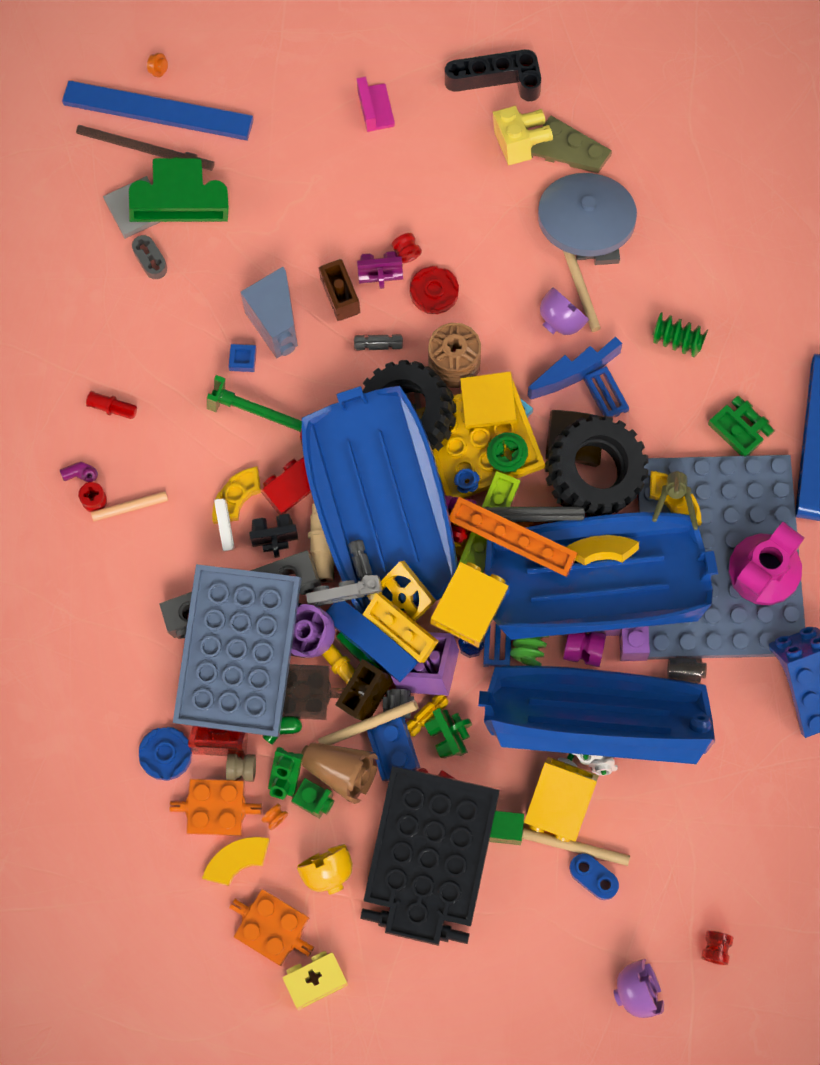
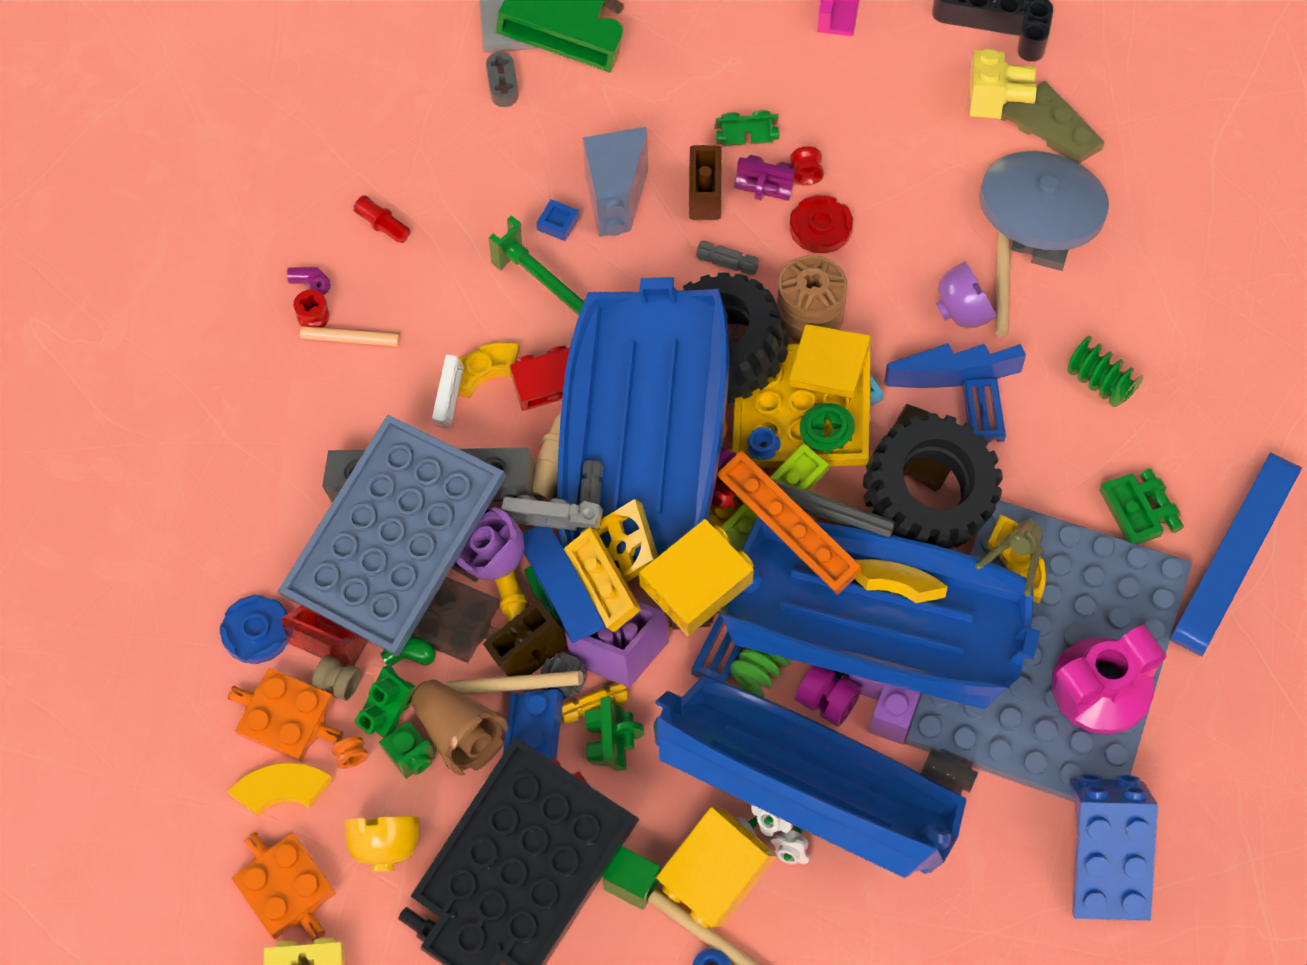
camera: 20 degrees right, 10 degrees down
(273, 538) = (502, 428): black hips -> none
(358, 228) = (758, 125): none -> green hinge
(468, 649) = (685, 645): clear blue tile -> none

